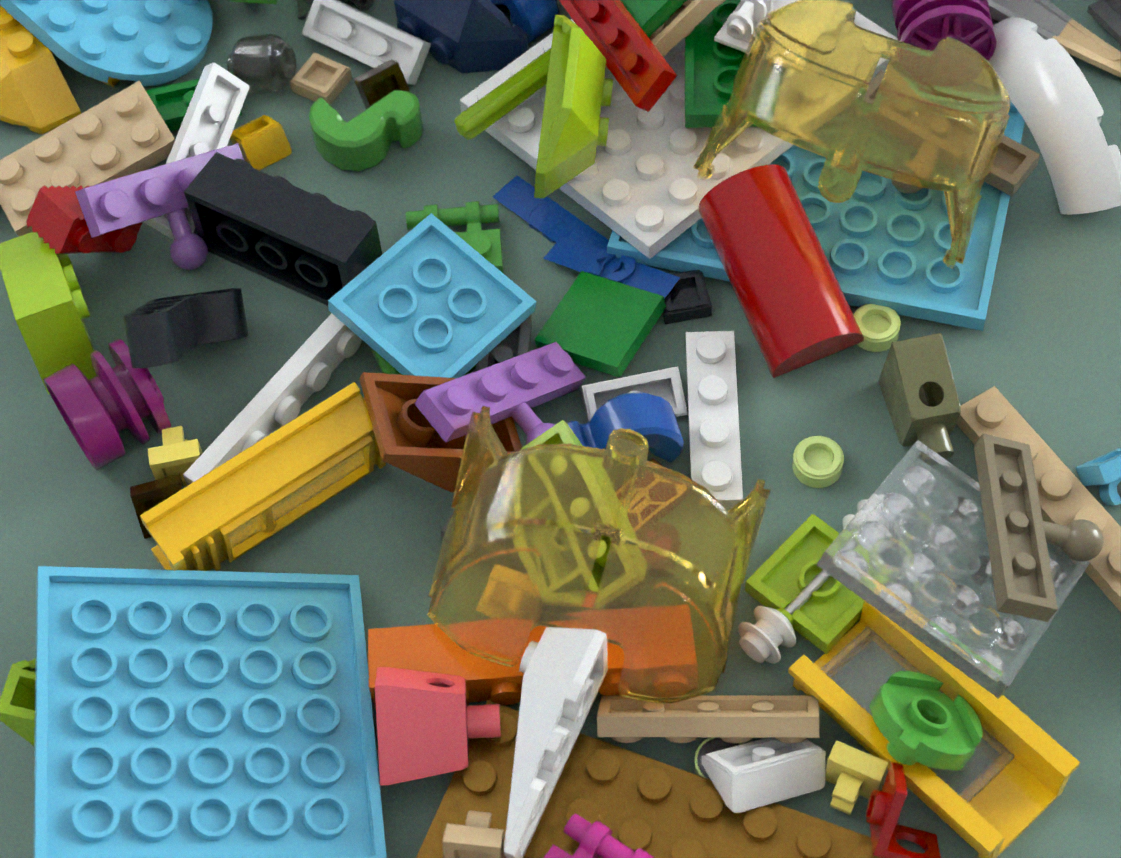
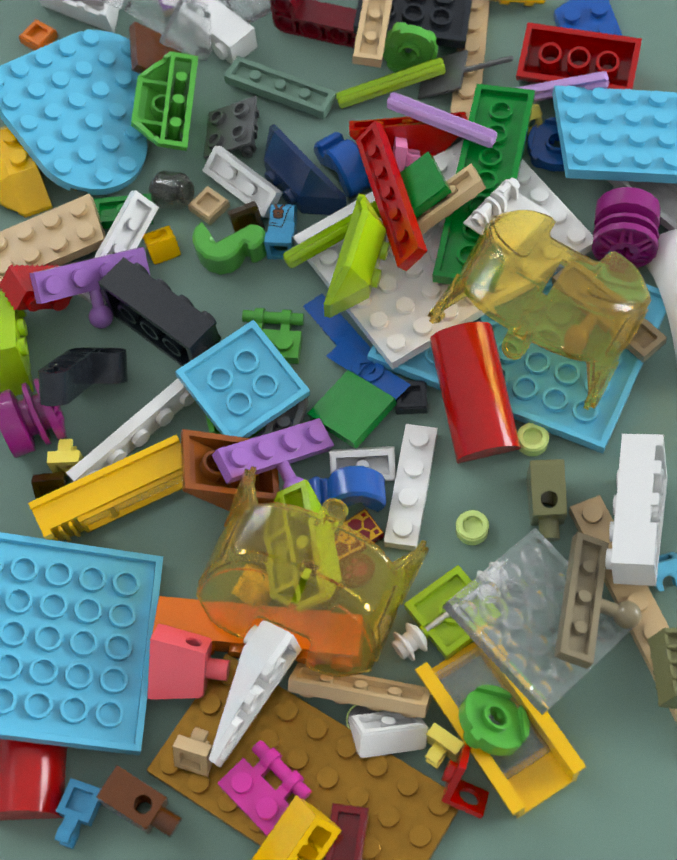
camera: 15 degrees right, 5 degrees up
(438, 97) = (280, 229): none -> dark azure leg
(1062, 390) = (638, 510): none -> white wedge

